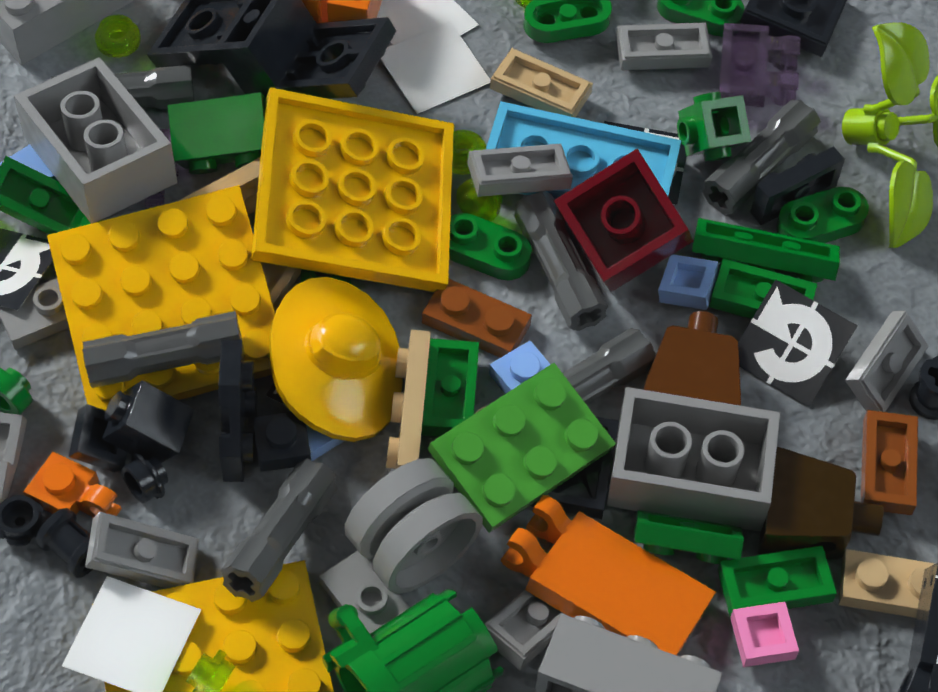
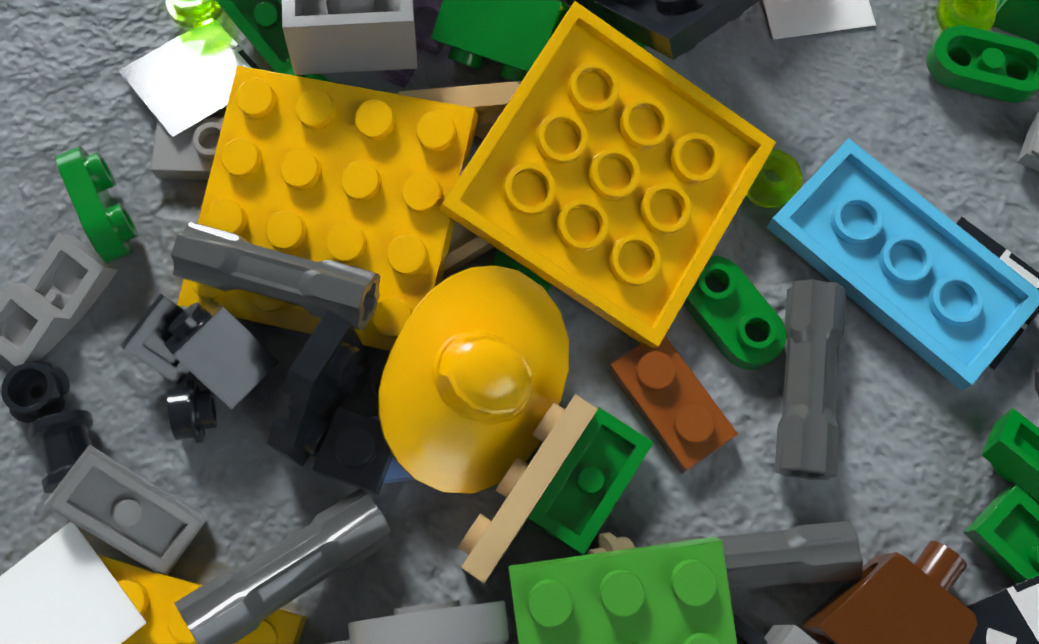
camera: 30 degrees right, 15 degrees up
(72, 486) = (107, 382): orange plate -> none
(434, 67) = (795, 55): white sticker -> none
(484, 207) = (757, 251): clear neon green plate -> none
(517, 366) = (688, 504): light blue plate -> none
(519, 170) = (822, 244): light grey plate -> none
(540, 84) = (909, 138): tan plate -> none
(624, 220) = (918, 381): dark red brick -> none
(688, 282) = (955, 491): light blue plate -> none

